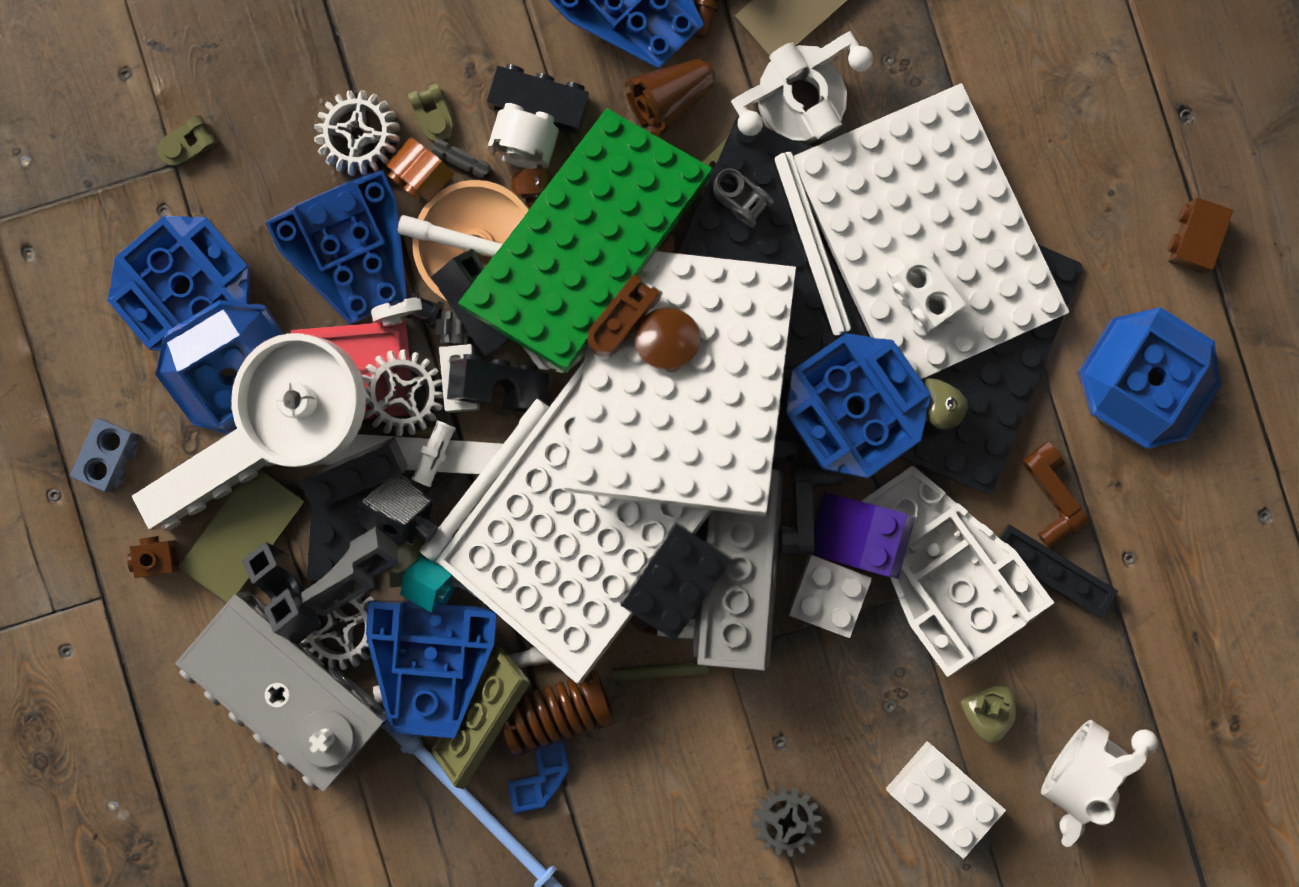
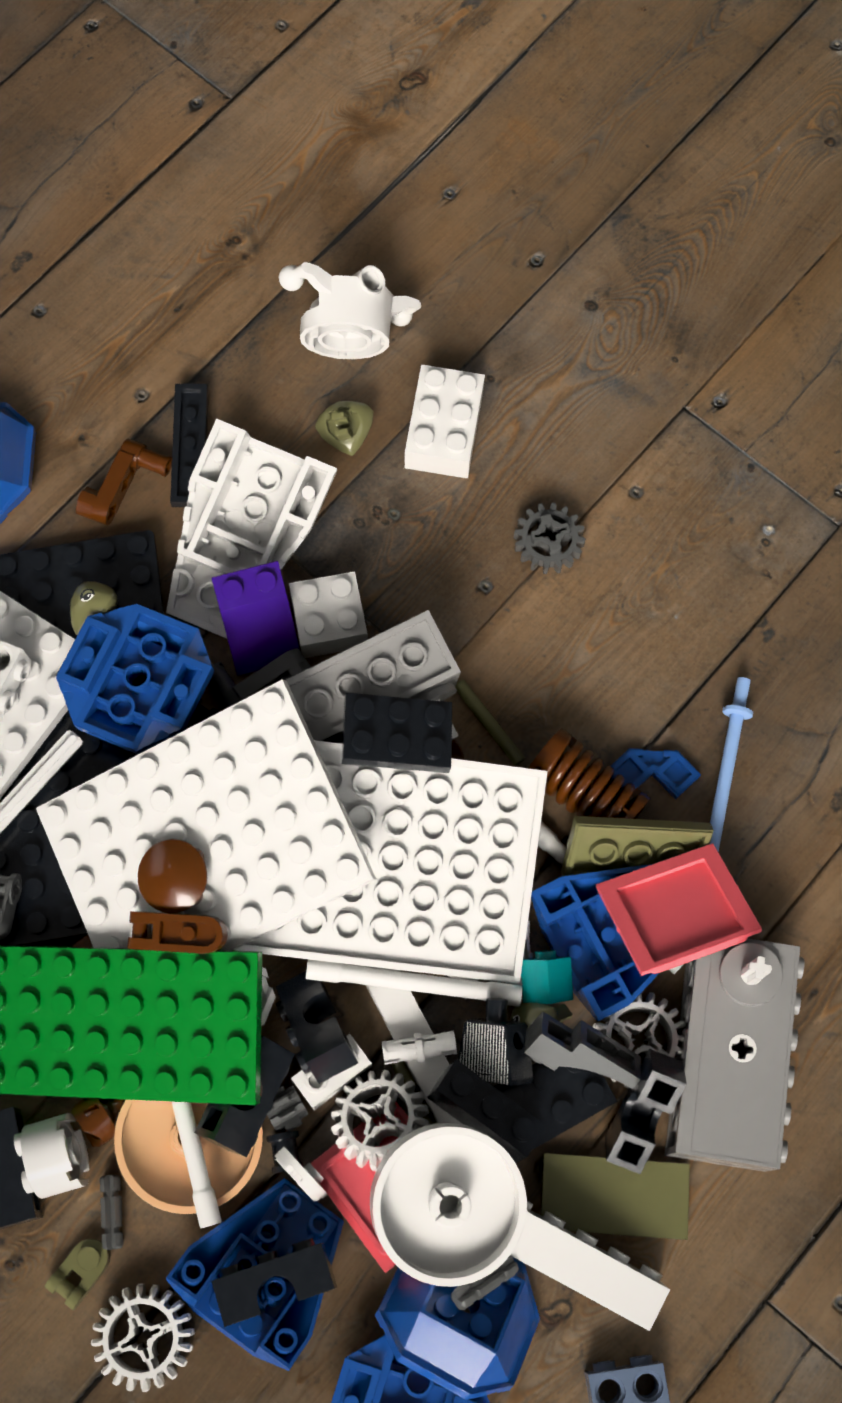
camera: 125 degrees left, 15 degrees down
(153, 557) = (695, 1270): reddish brown brick -> none
(229, 374) = (465, 1295): none -> dark grey axle
(328, 273) = (240, 1290): none -> black arch
(409, 716) = (678, 910): none -> coral piece
(418, 170) = (145, 1243): dark orange brick -> none

